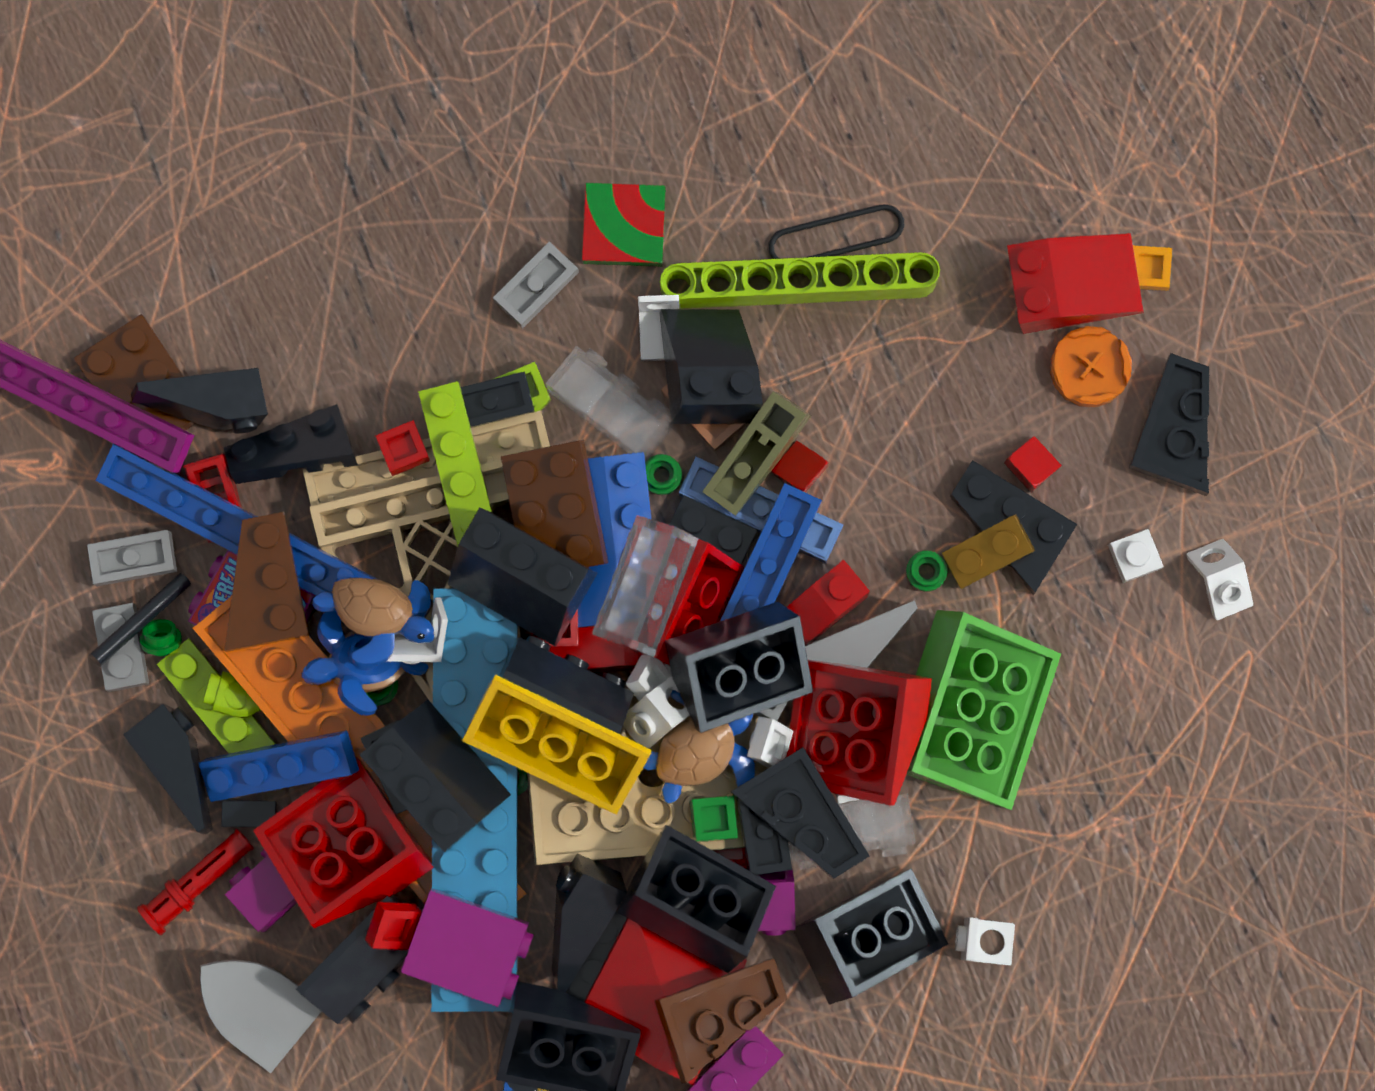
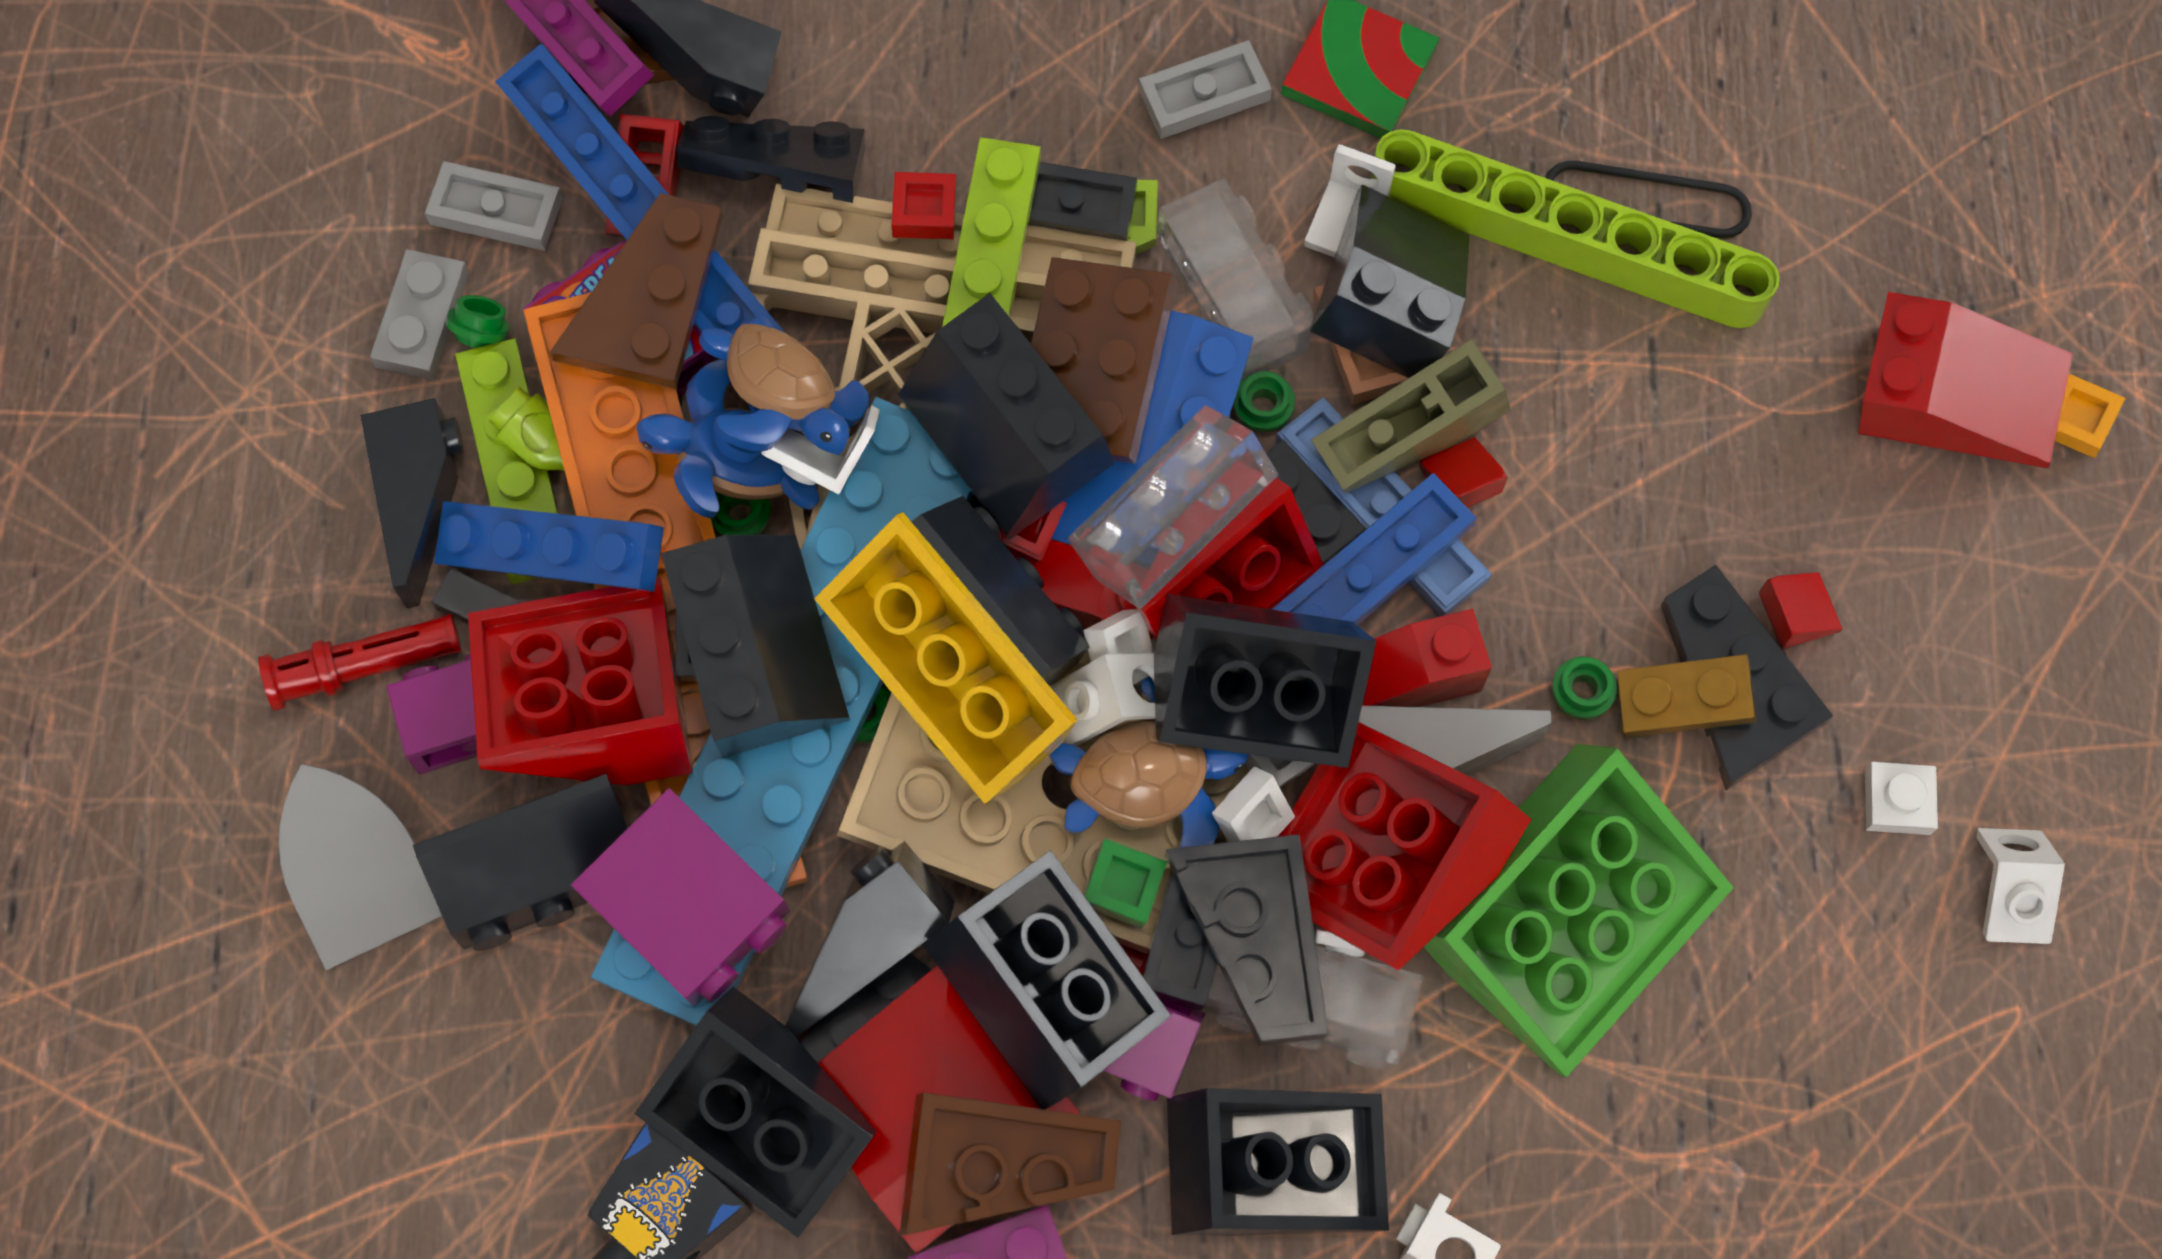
camera: 20 degrees right, 10 degrees down
(140, 619) = (462, 283): black bar -> none
(393, 925) = (592, 815): red plate -> none
(1090, 366) = (1939, 514): orange tile -> none
(1176, 427) = (2031, 649): black wing -> none

